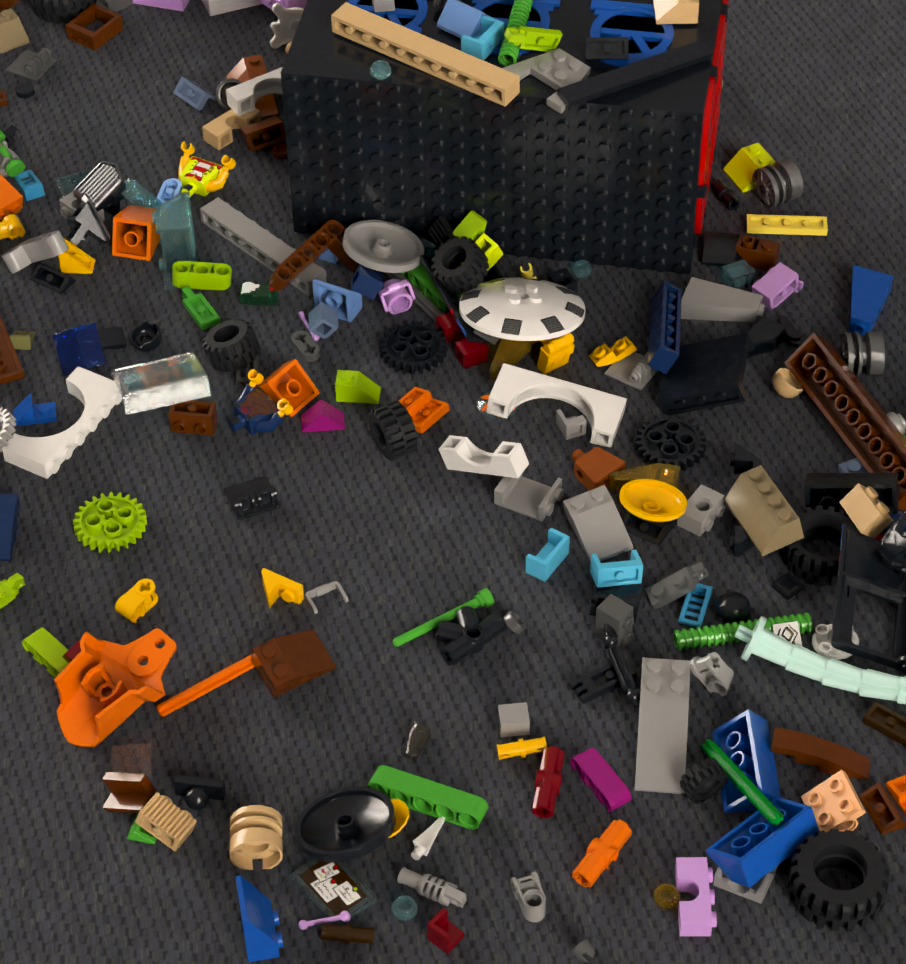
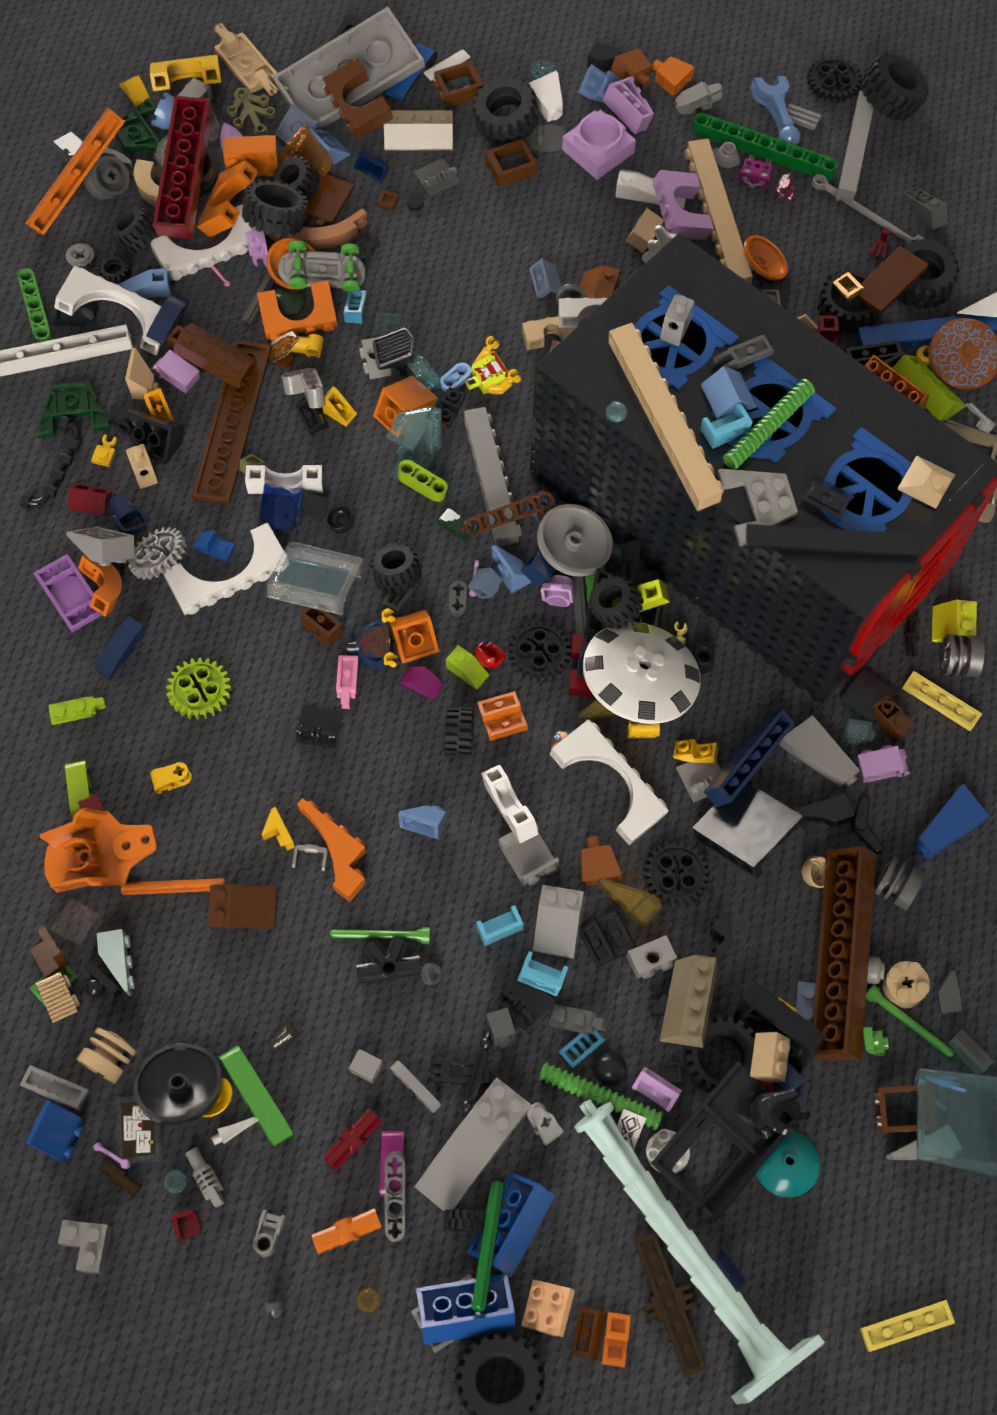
camera: 30 degrees right, 20 degrees up
(40, 338) = (308, 479): none -> white arch
(87, 221) = (364, 380): piece -> none
(192, 759) = (113, 951): none -> light aqua slope
(199, 309) = (400, 513): bright green hinge -> none
(211, 901) = (54, 1087): none -> light grey plate
(250, 449) = (347, 679): none -> bright pink hinge
(258, 23) = (644, 230): none -> tan brick
(352, 572) = (343, 849): none -> orange arch
(373, 370) = (491, 650): none -> red hair
(412, 514) = (423, 820): none -> medium blue slope
(471, 226) = (651, 567): lime slope -> none
(521, 748) = (355, 1095): yellow pin -> none
(534, 38) = (764, 454): lime hinge -> none
(558, 709) = (412, 1083): none -> light grey beam
(571, 426) = (610, 805): light grey panel -> none
(581, 269) = (733, 648): clear light blue plate -> none
(630, 793) = (395, 1196): none -> dark grey beam
(653, 500) = (616, 922): yellow dish -> none
(695, 916) = (374, 1336): lavender arch -> none
(787, 599) = (656, 1089): none -> lavender hinge
(821, 753) = (574, 1253): reddish brown slope -> none

